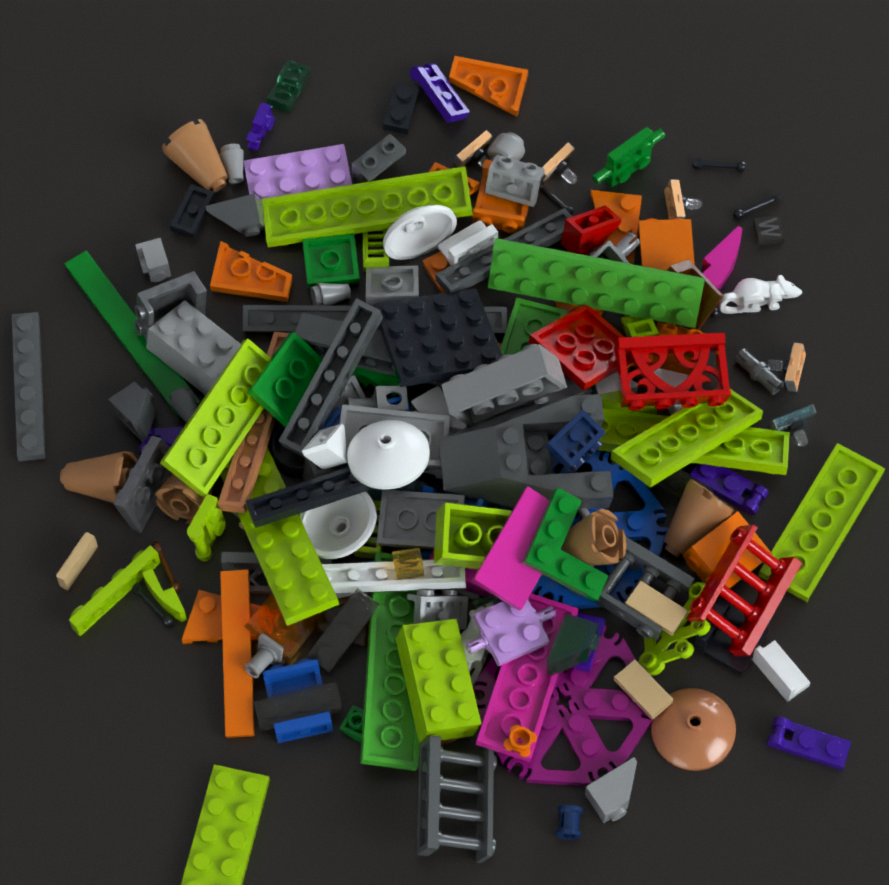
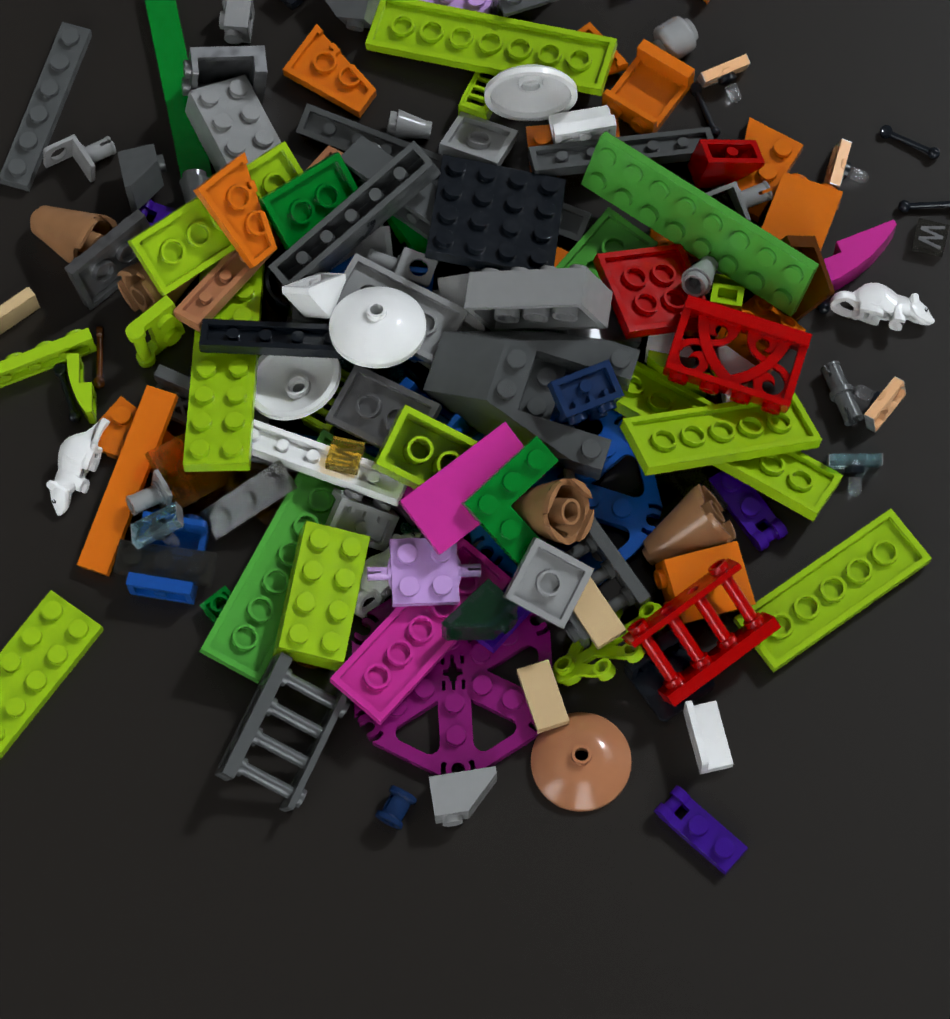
camera: 25 degrees right, 5 degrees up
(79, 413) = (83, 155): none -> light grey bracket
(187, 651) = (75, 458): none -> white animal
(234, 405) = (236, 209): none -> orange wing
(282, 678) = (158, 527): none -> clear light blue piece
(331, 260) = (427, 89): green plate -> none
(473, 150) = (639, 24): light nougat piece -> none
(514, 180) = (665, 74): light grey bracket -> none
(523, 733) = (377, 688): orange plate -> none
(615, 323) = (699, 277): none -> light grey cone
(615, 597) = (548, 582): none -> light grey plate
(628, 157) = (806, 95): green plate -> none

